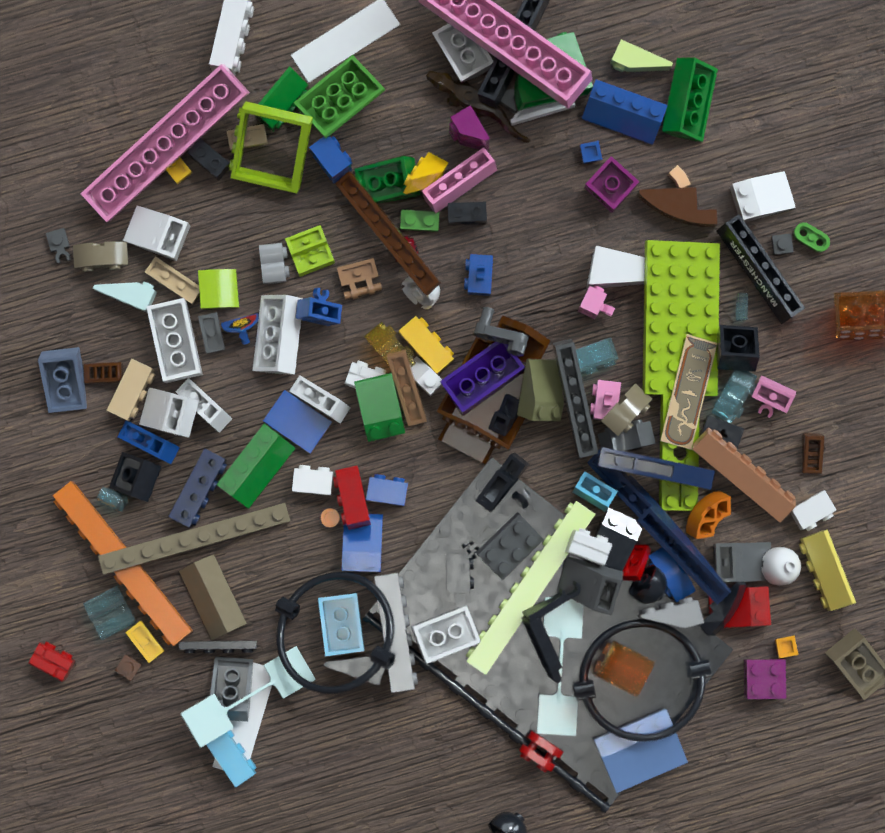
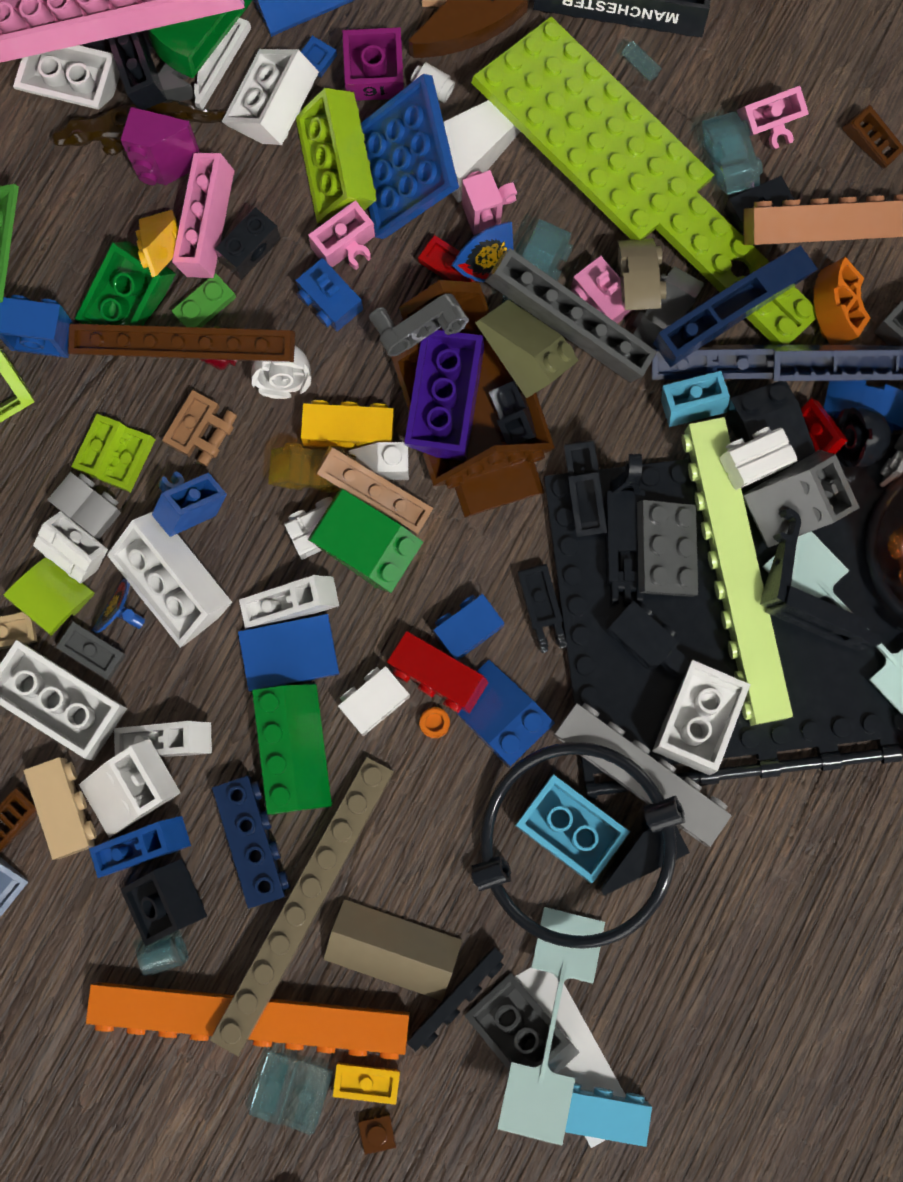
camera: 45 degrees left, 5 degrees down
(248, 277) = (70, 547): none -> white brick
(430, 513) = (541, 604): none -> black hinge
(513, 254) = (343, 236): none -> bright pink brick
(549, 151) = (271, 95): none -> white slope
(549, 211) = (335, 153): none -> lime slope
(550, 315) = (439, 257): none -> red plate
(569, 328) = (483, 251): none -> shield
(575, 247) = (408, 156): none -> blue plate
(631, 219) = (442, 81): none -> white brick
(688, 391) = (683, 195): sticker -> none
(737, 348) = (686, 99): black brick -> none

